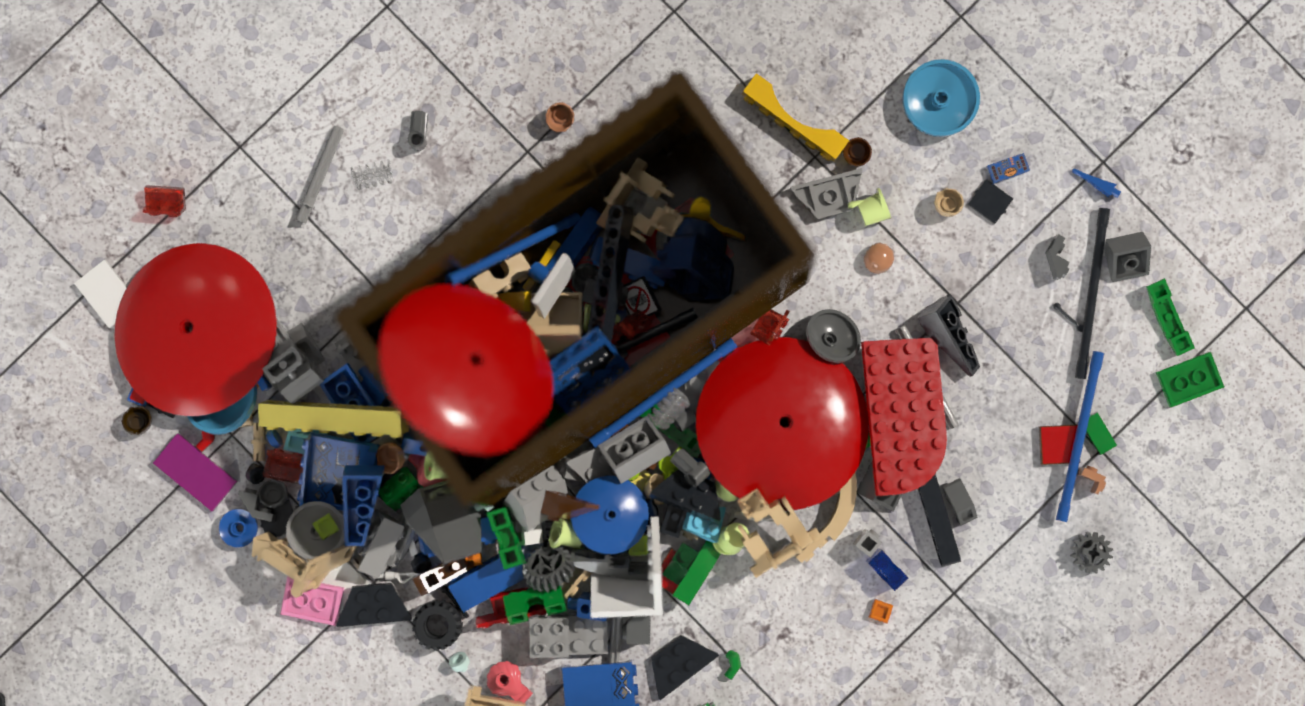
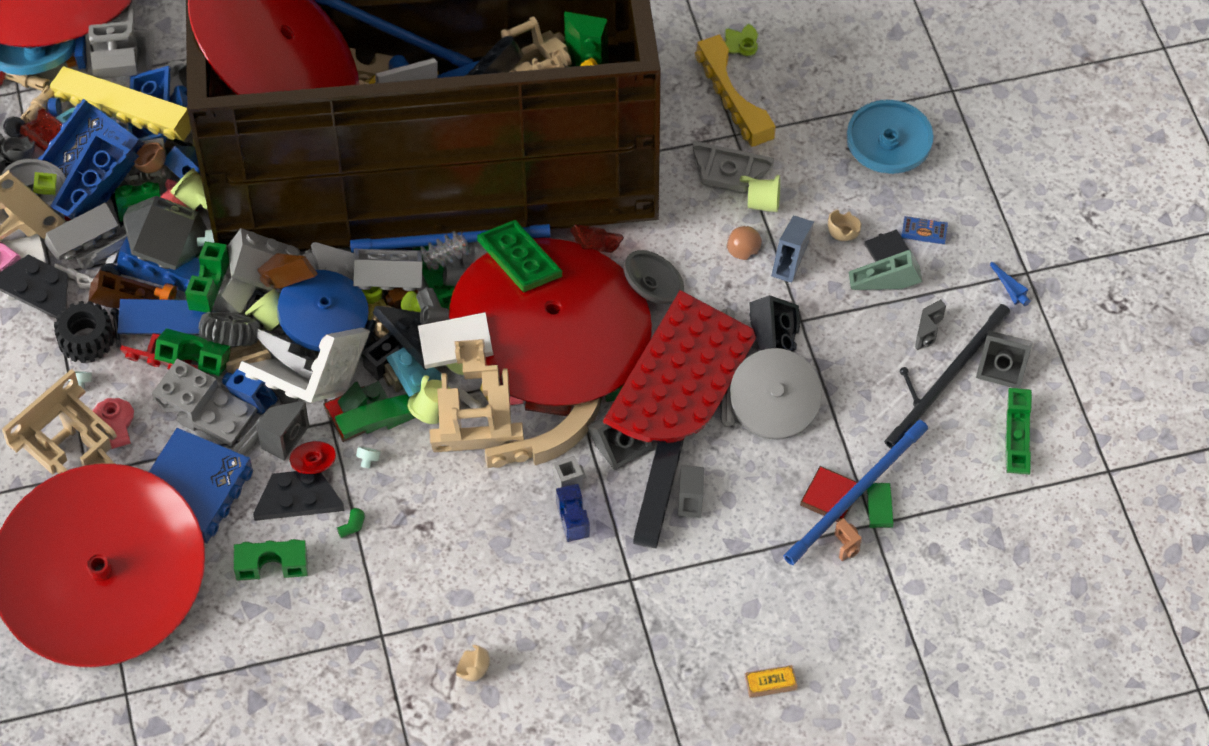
camera: 30 degrees right, 30 degrees down
(667, 624) = (312, 457): none -> red dish
(675, 170) = (586, 38): none -> green slope
(711, 604) = (367, 455): none -> light aqua tile
(722, 496) = (439, 338): none -> white tile
(732, 388) = (519, 256): none -> green tile
(768, 61) = (742, 42): none -> lime plate
(857, 152) = (778, 144): reddish brown hair -> none
(880, 611) = (541, 554): orange tile -> none
(920, 245) = (792, 248): none -> sand blue slope
(979, 387) = (775, 393): none -> light grey dish
(1002, 229) = (889, 273): none -> sand green slope
(1090, 560) = (807, 618): dark grey gear -> none
(1096, 619) = (771, 681): none -> tile
(1190, 379) = (1010, 504): green tile -> none

